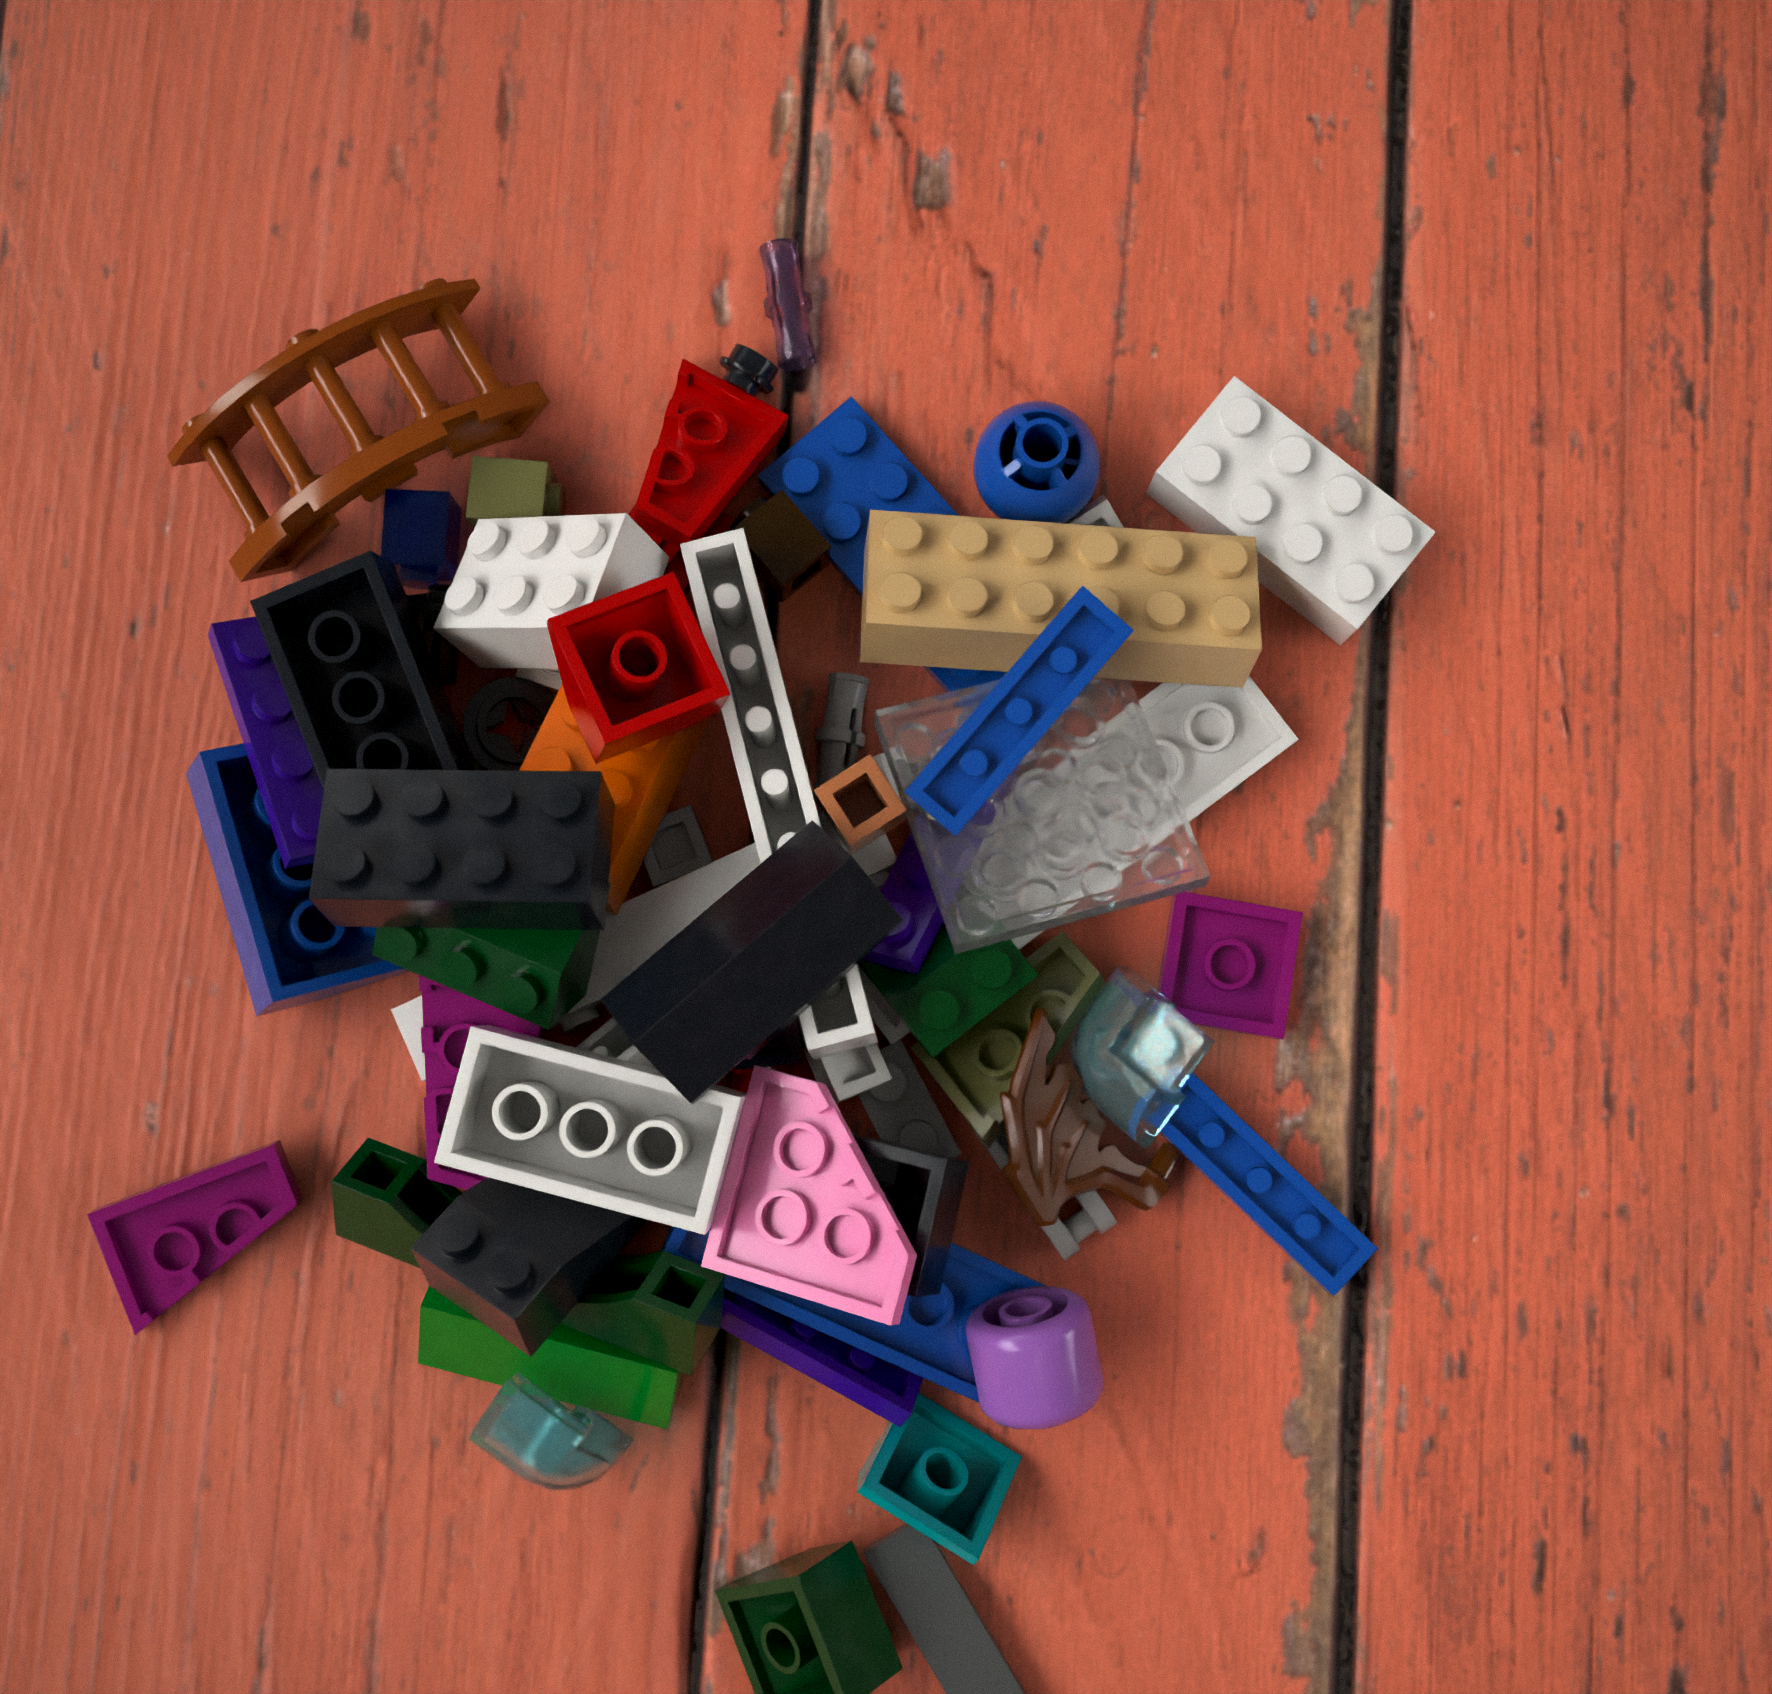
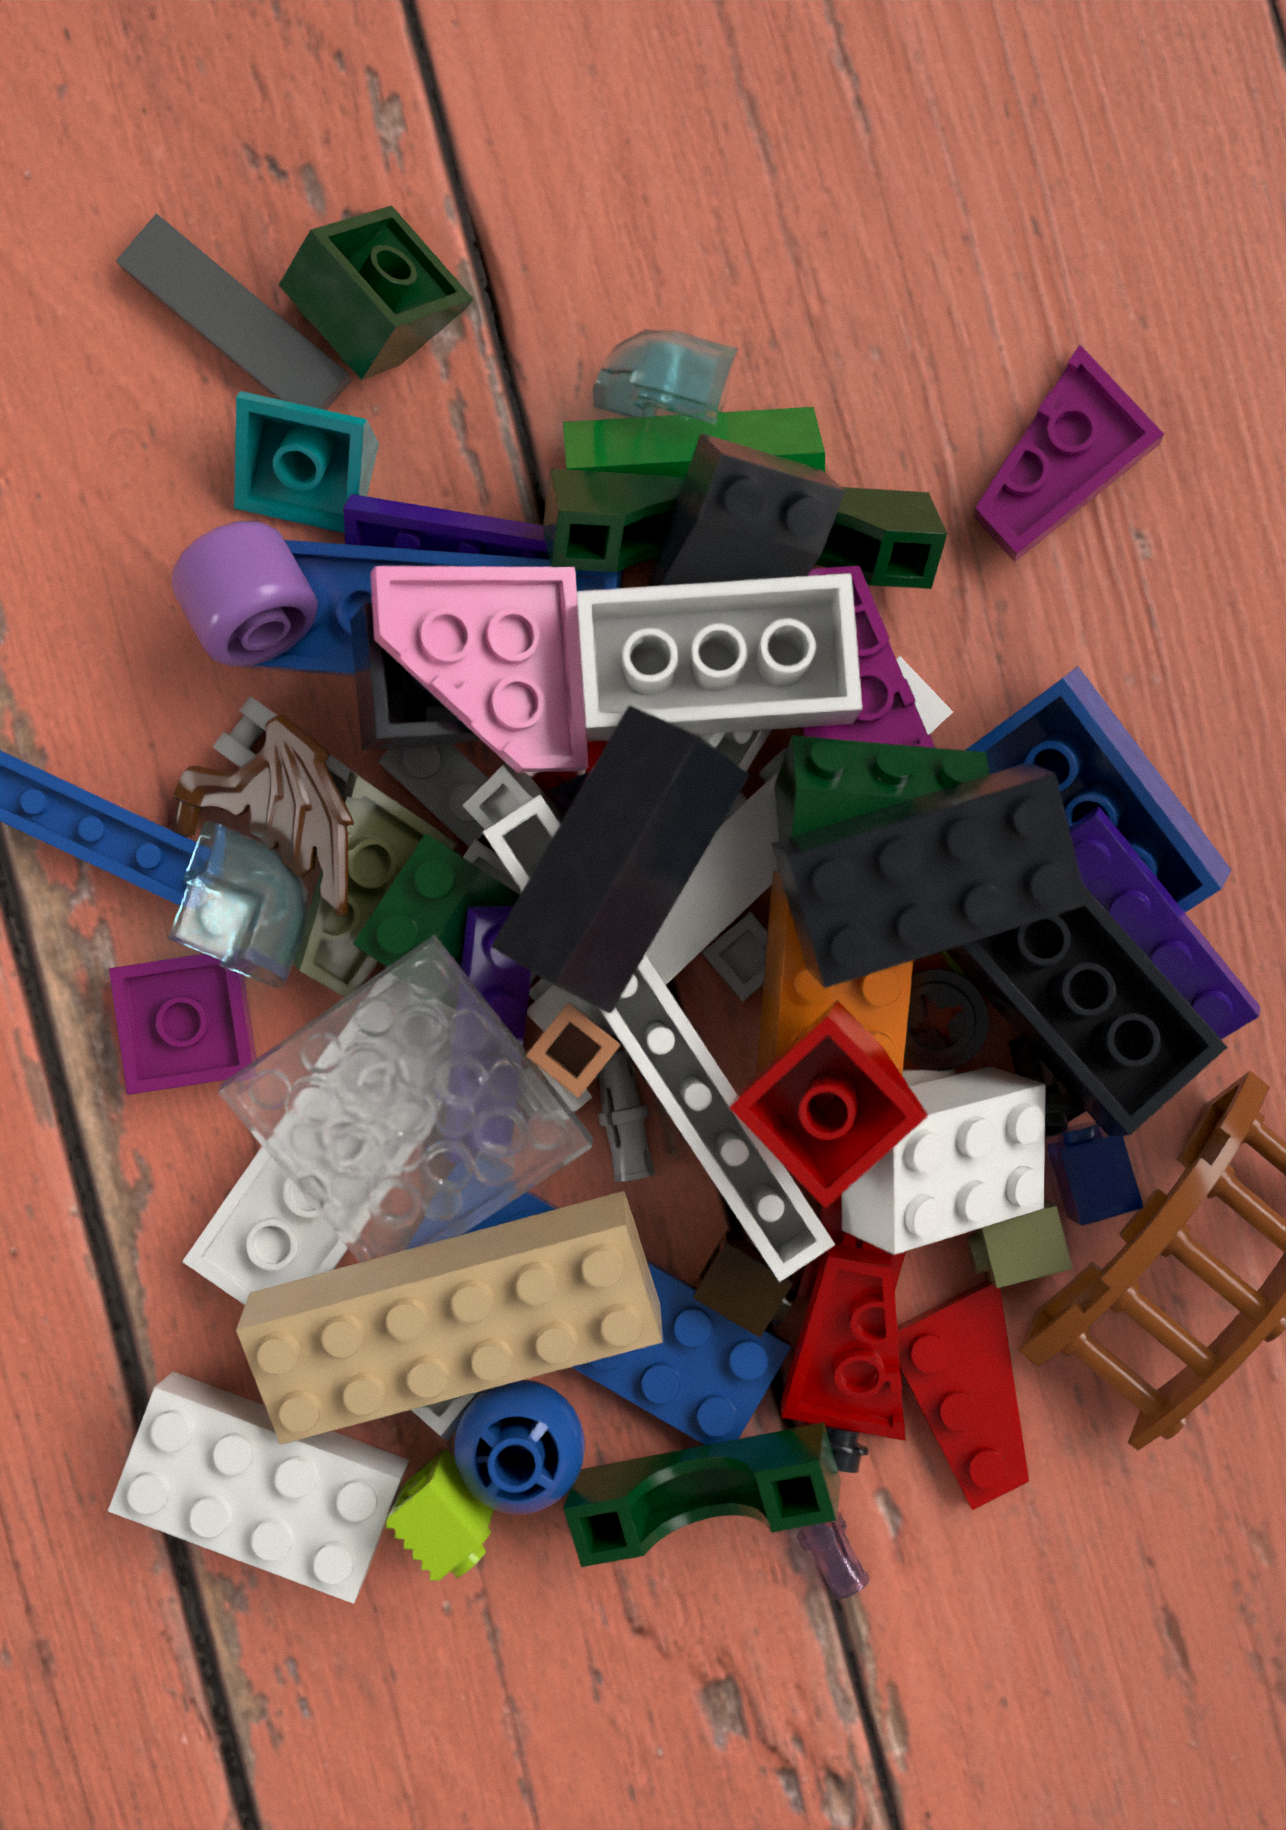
camera: 160 degrees right, 5 degrees up
(611, 384) = (966, 1389): none -> red wing
(812, 361) = (632, 1504): none -> dark green arch
(1018, 710) = (448, 1188): blue plate -> none
(1129, 425) = (440, 1519): none -> lime brick

